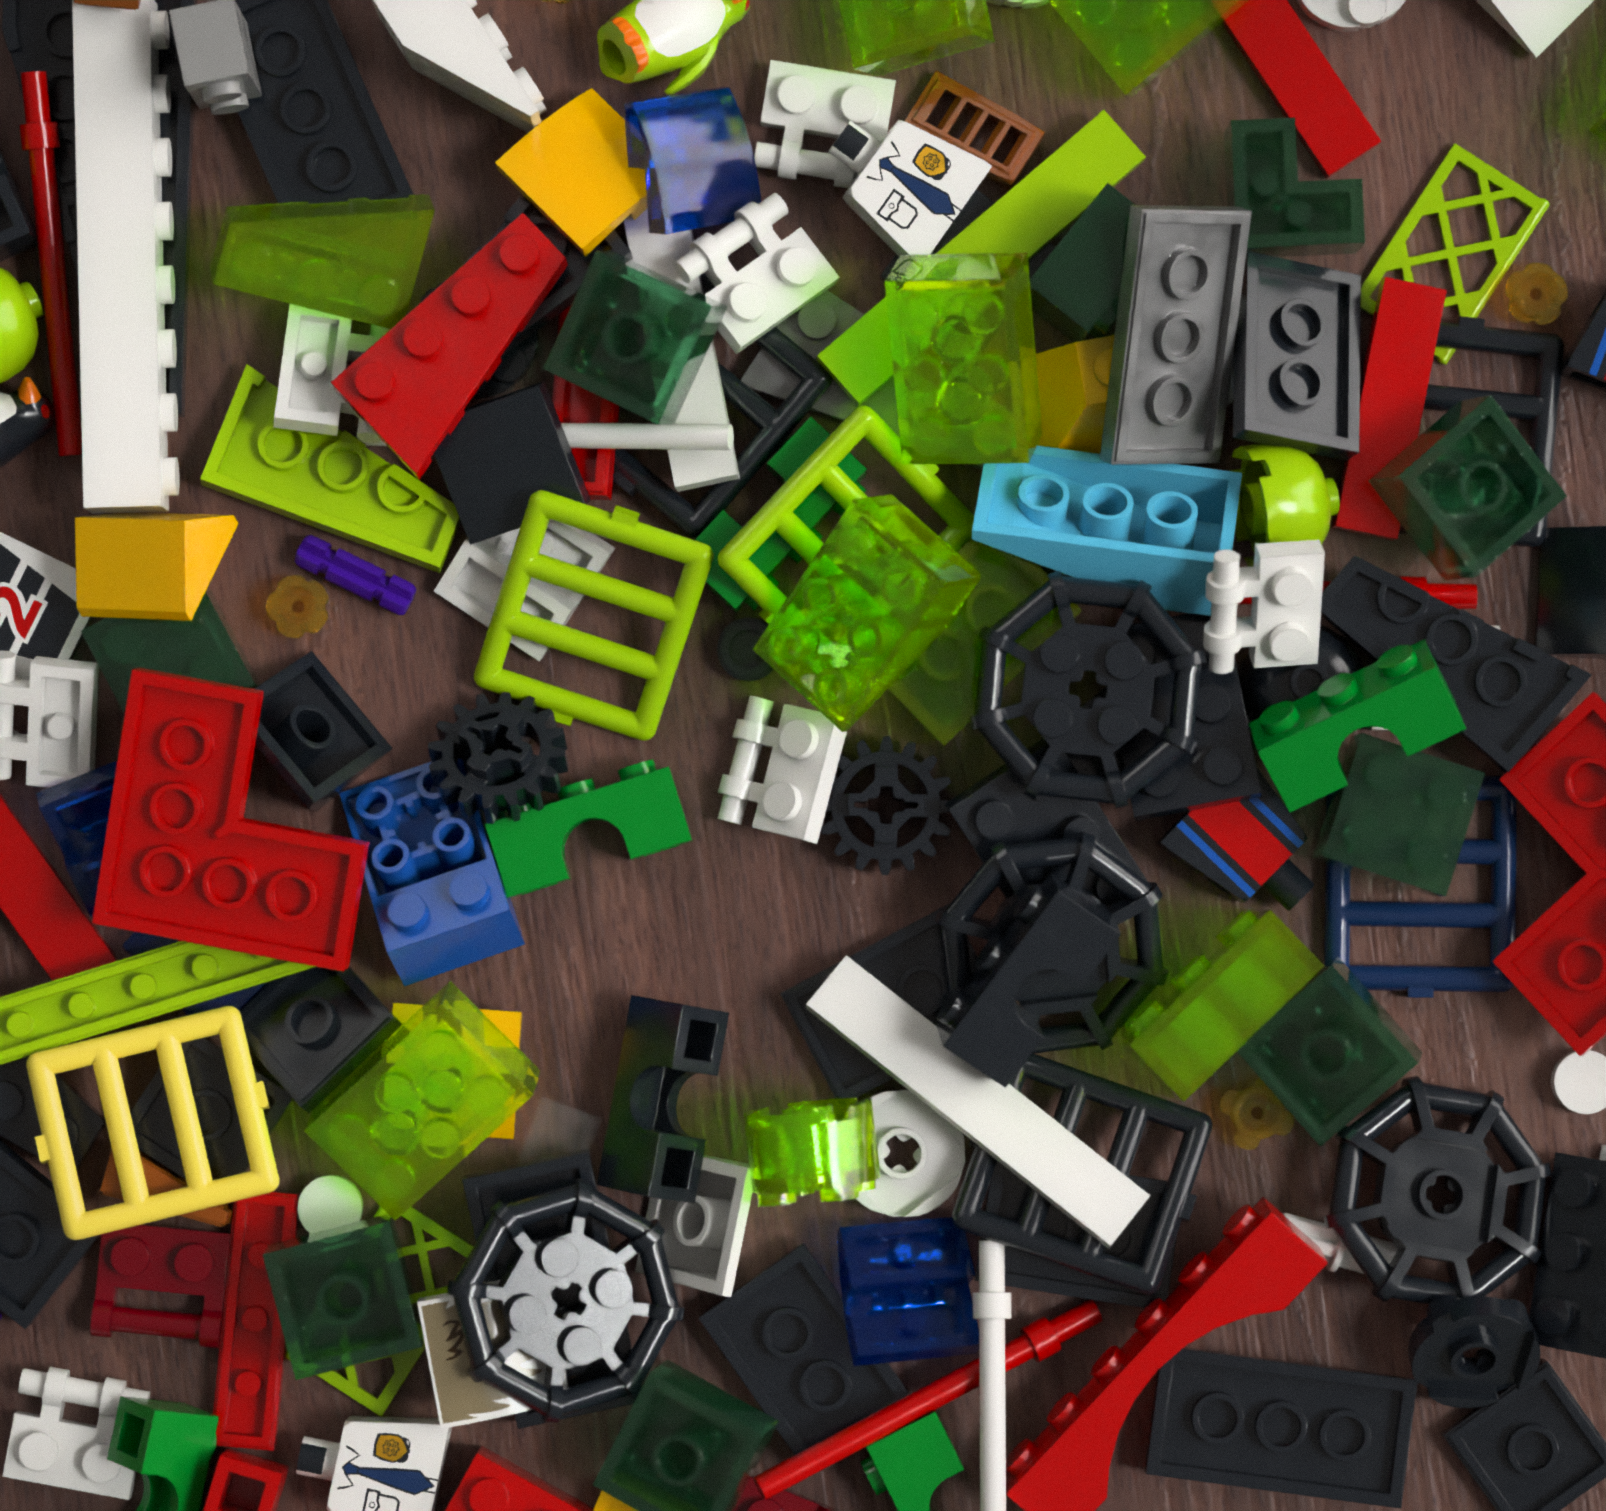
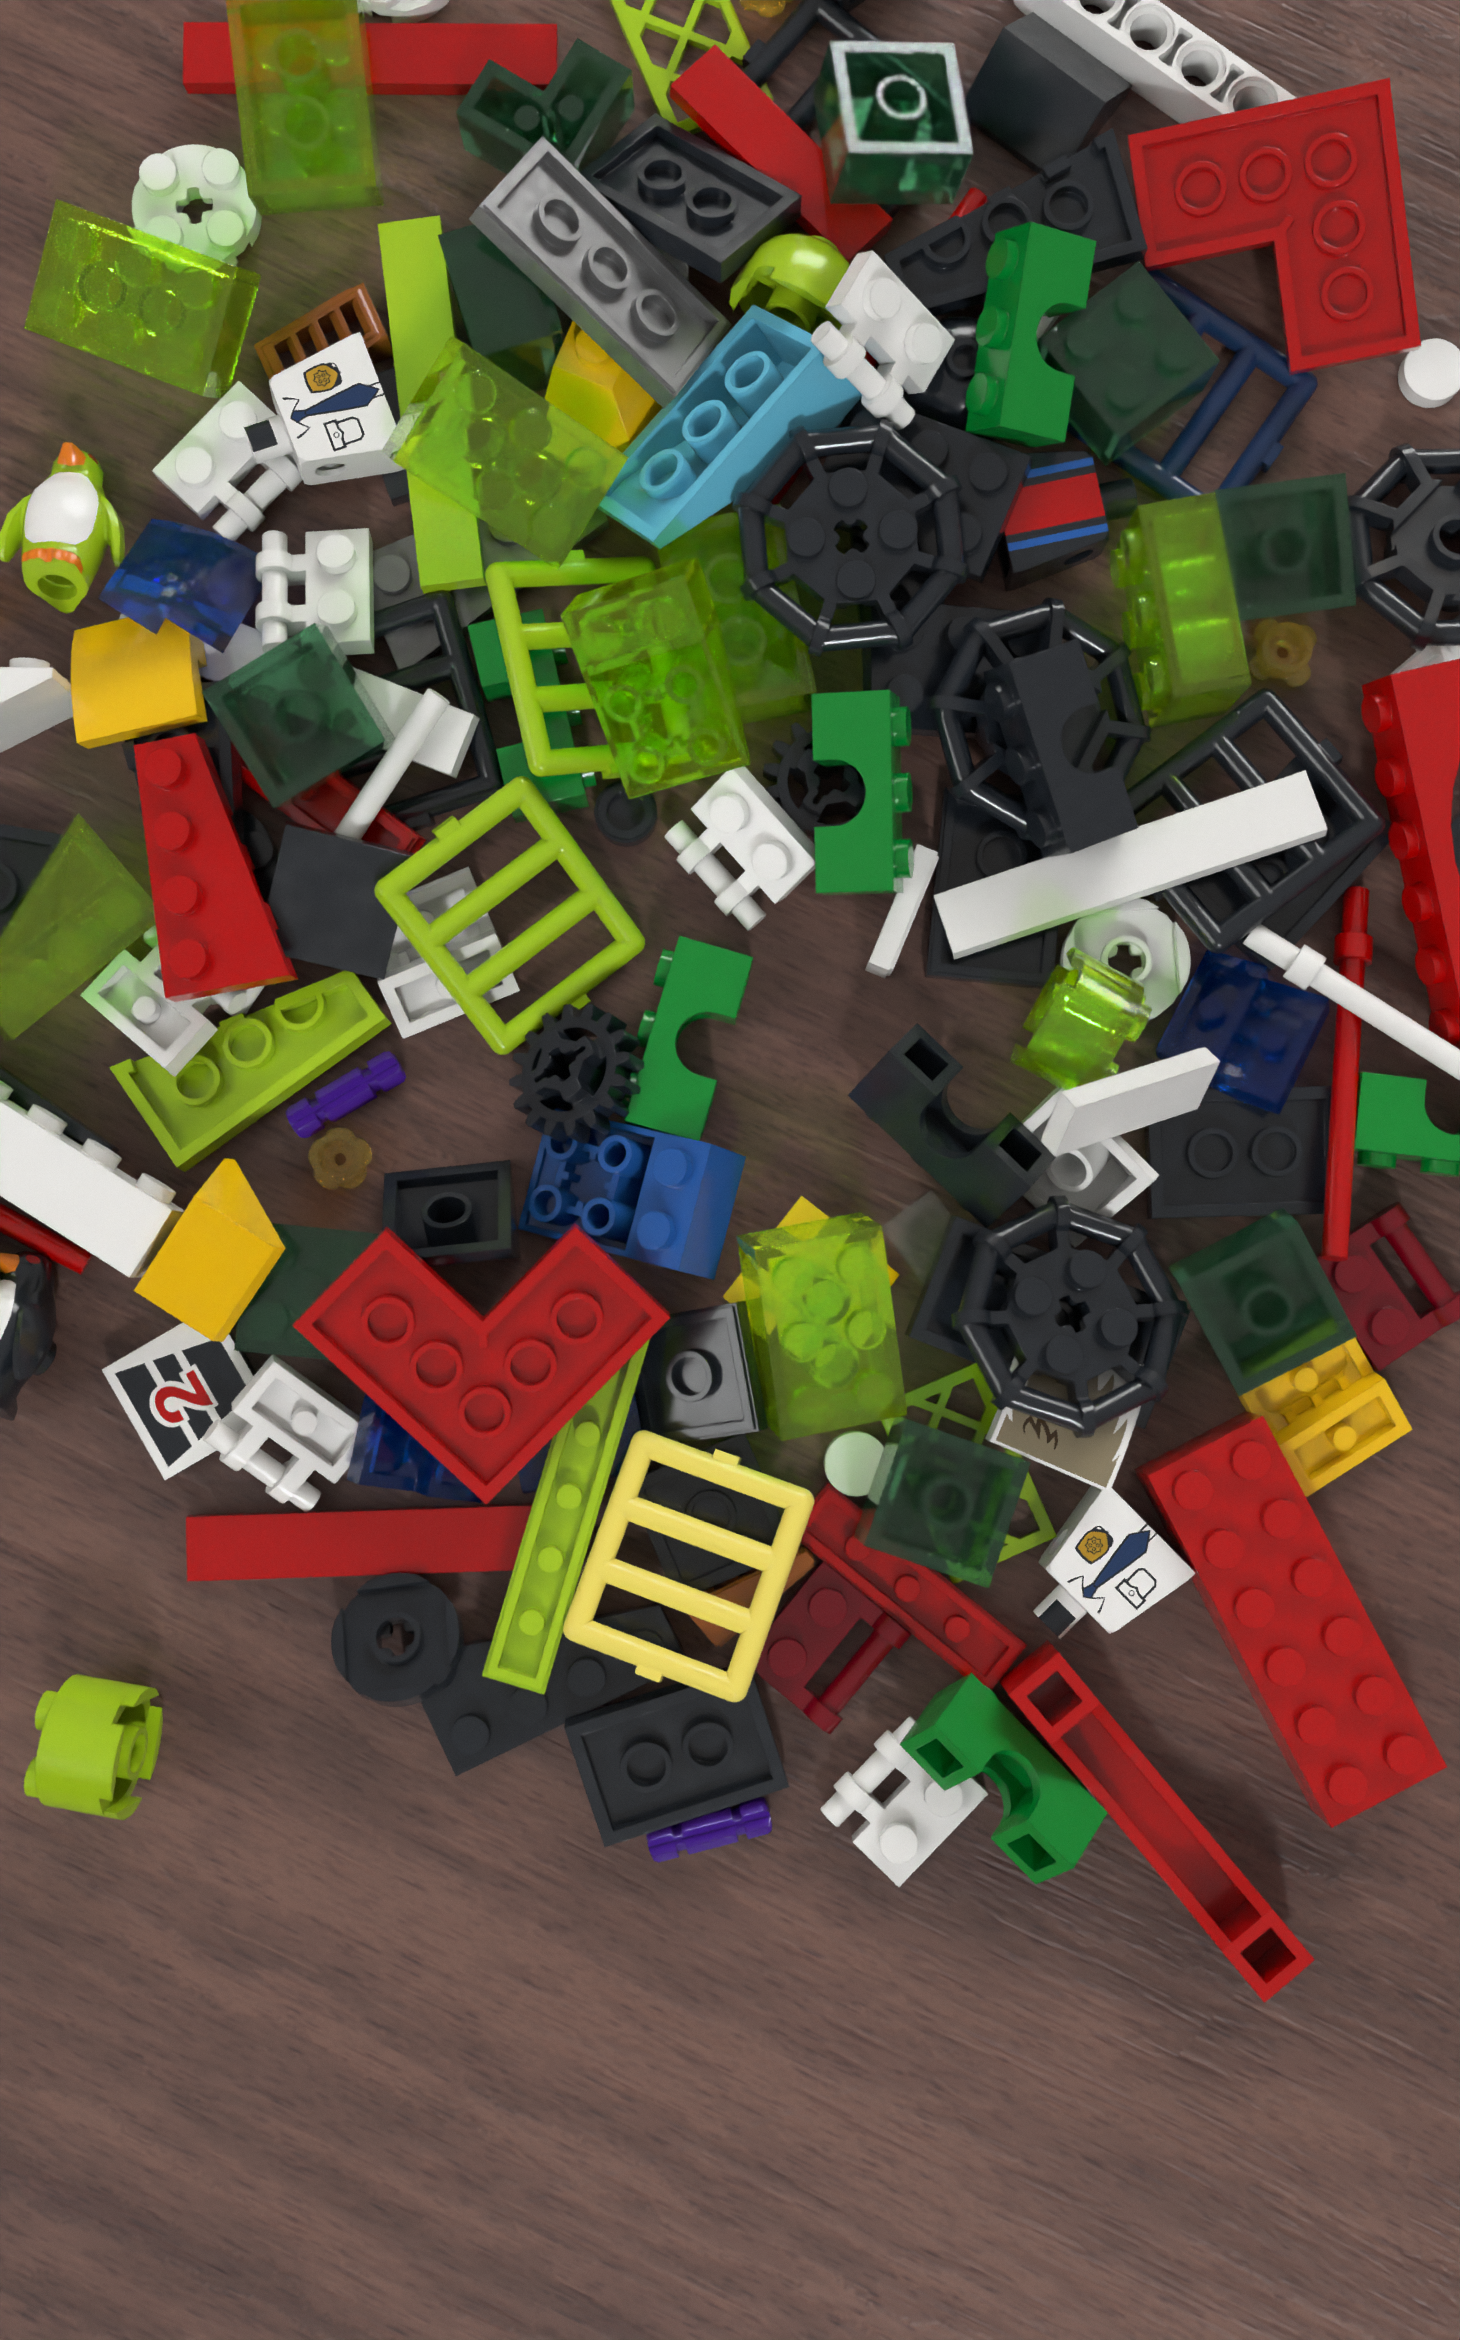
camera: 55 degrees left, 0 degrees up
(772, 1230) = (1129, 1101): none -> white tile
(817, 938) = (902, 914): none -> white tile
(929, 815) = (868, 734): none -> green arch

